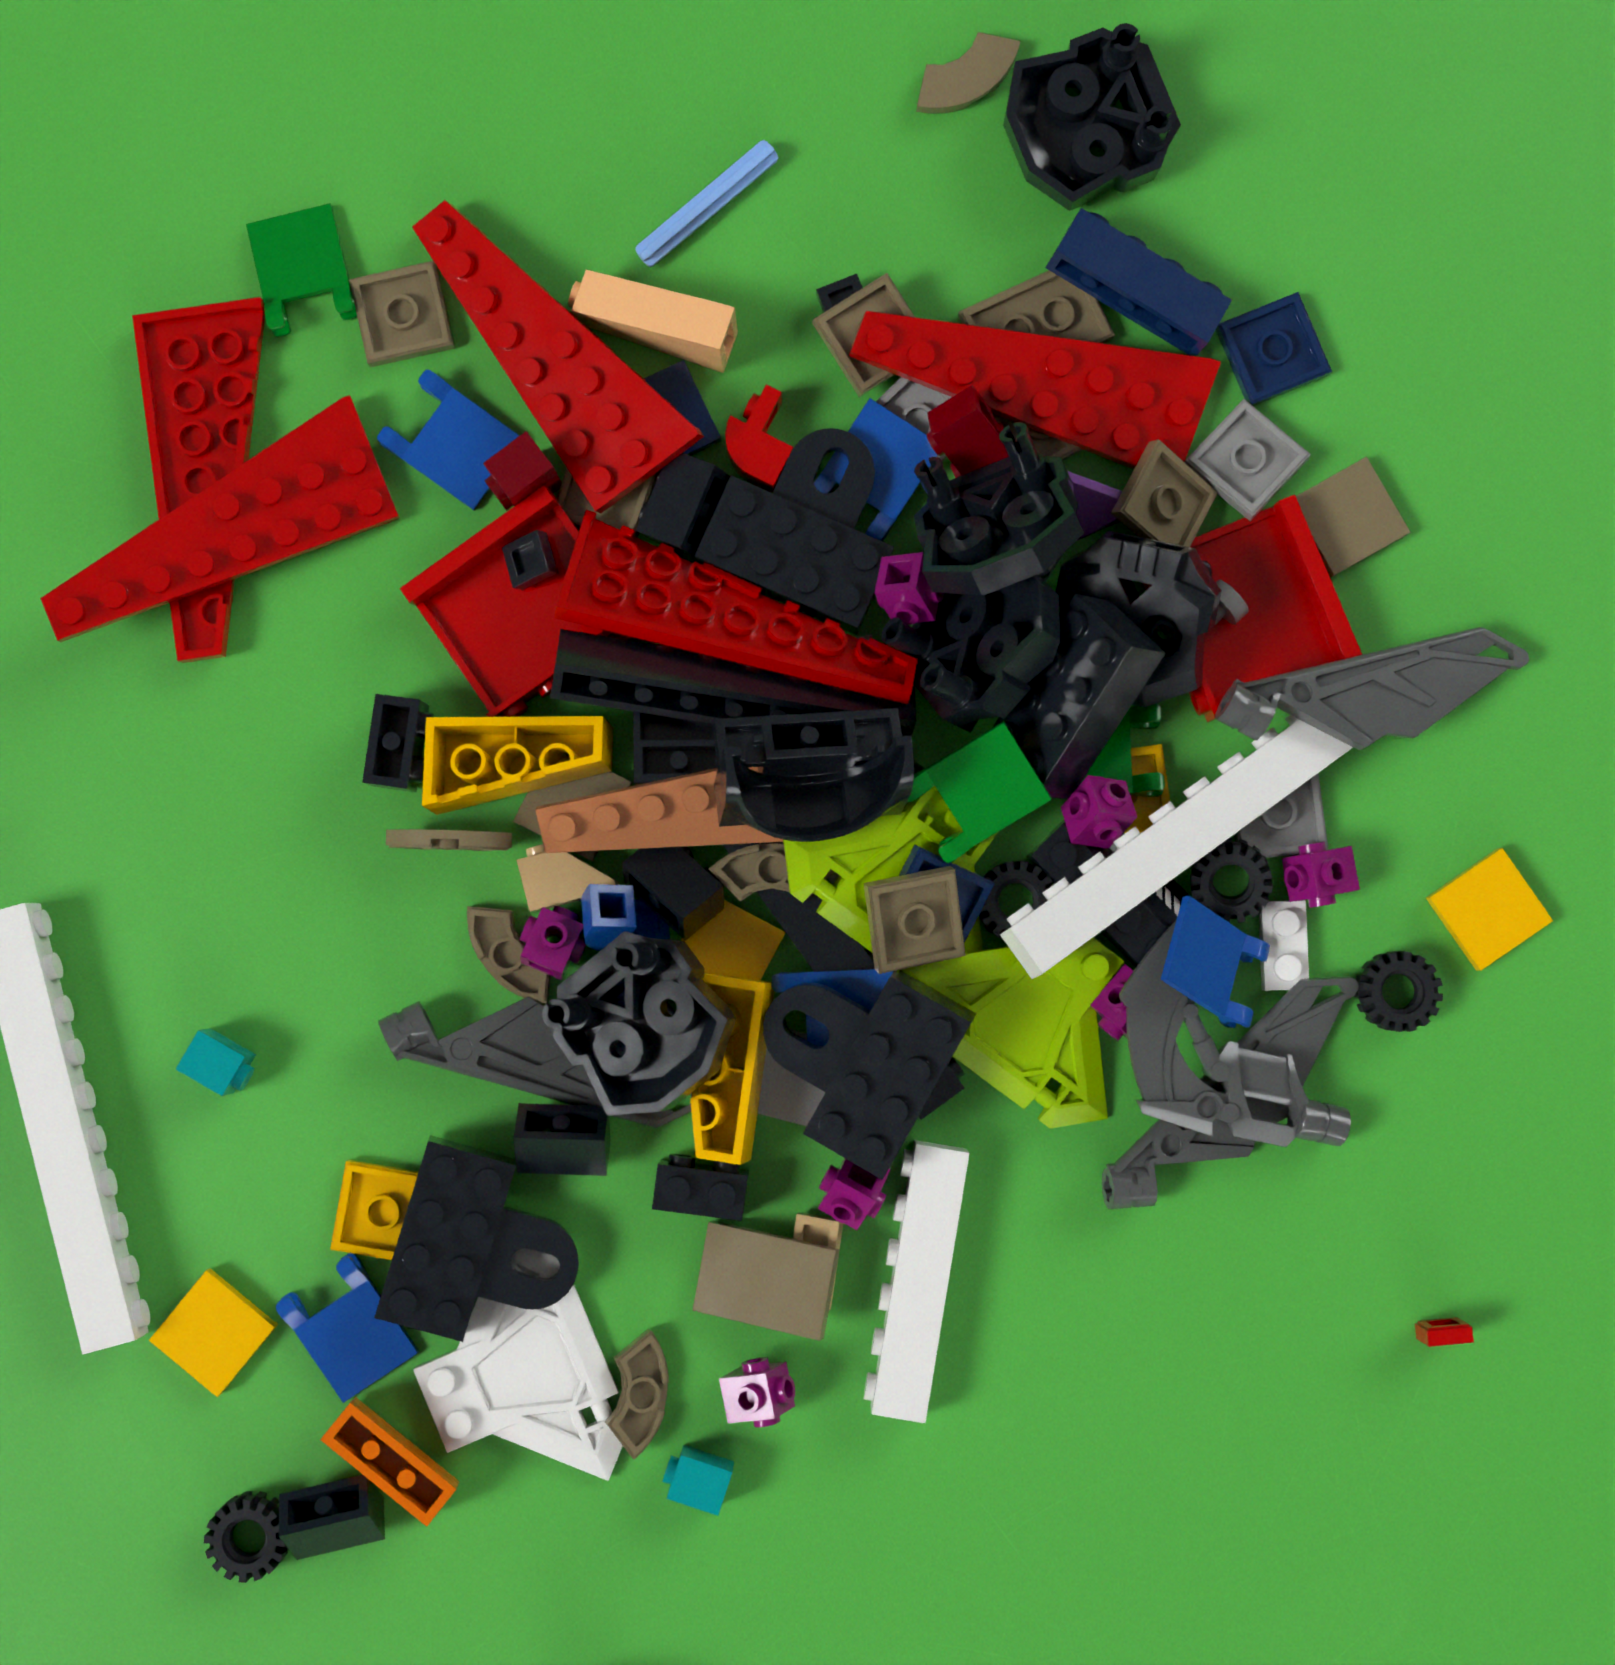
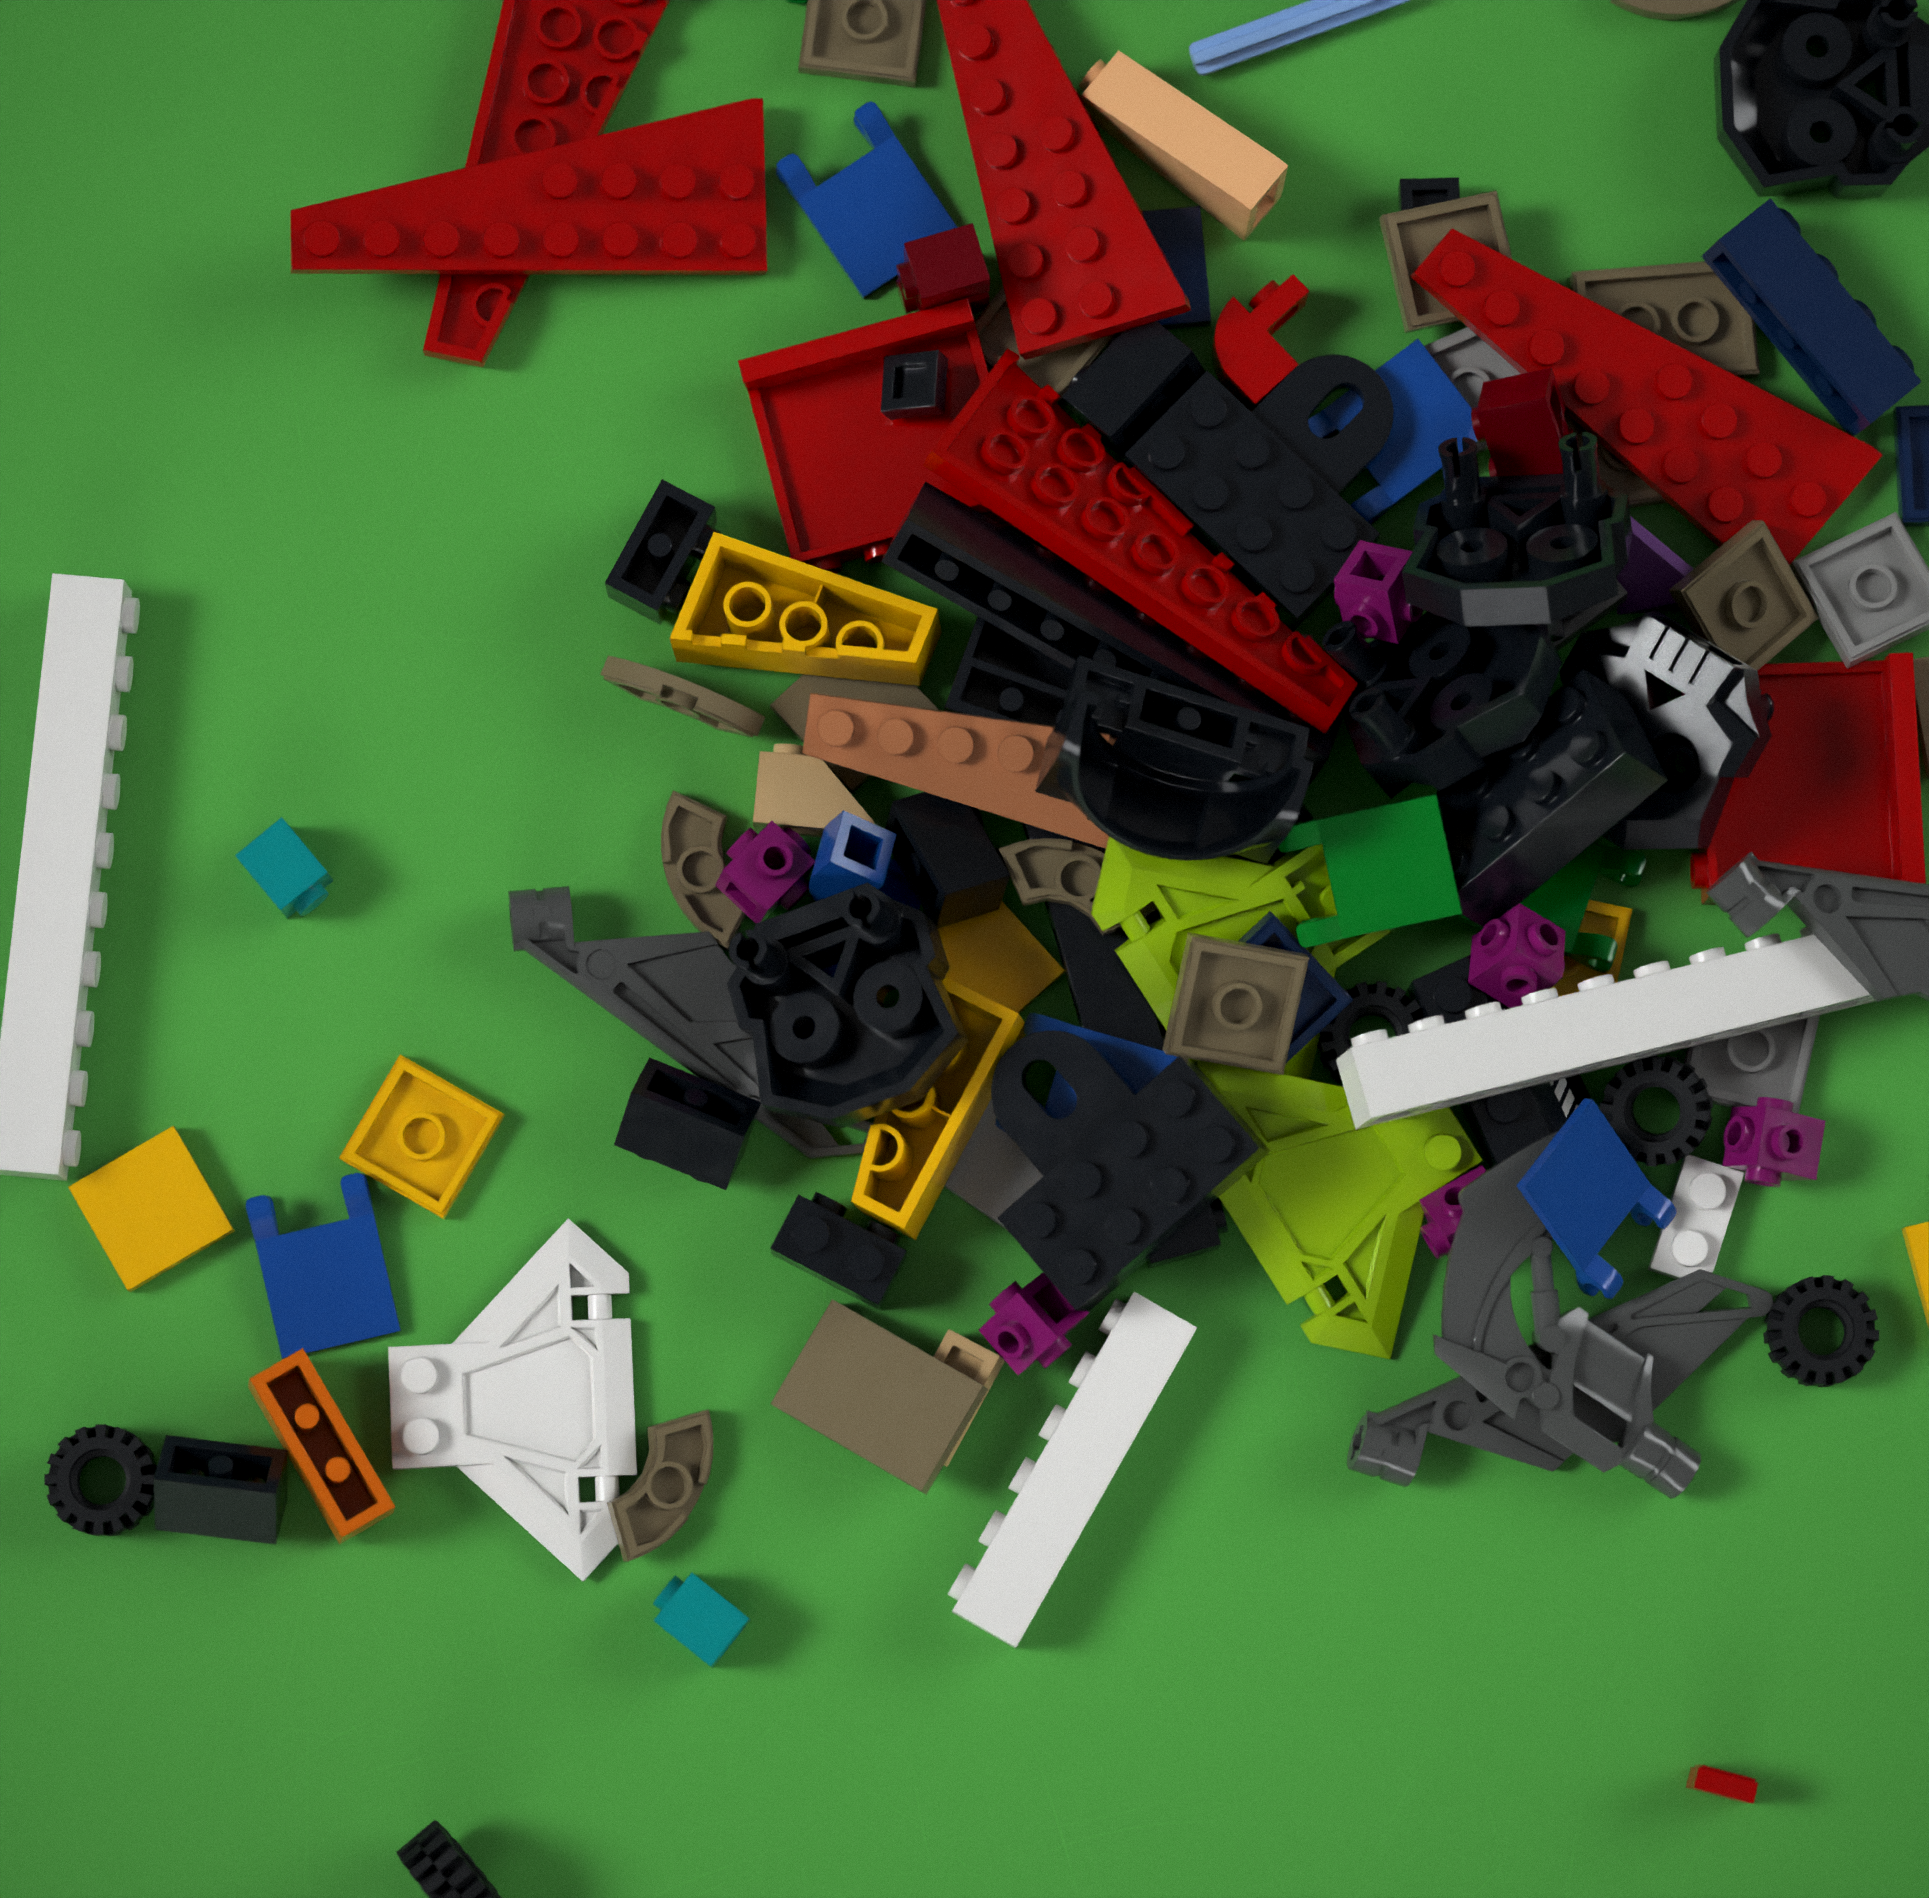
camera: 15 degrees right, 5 degrees down
(462, 1244) = (512, 1207): black brick -> none
(757, 1392) = (817, 1533): magenta brick -> none
(1231, 604) = (1778, 761): light grey tile -> none

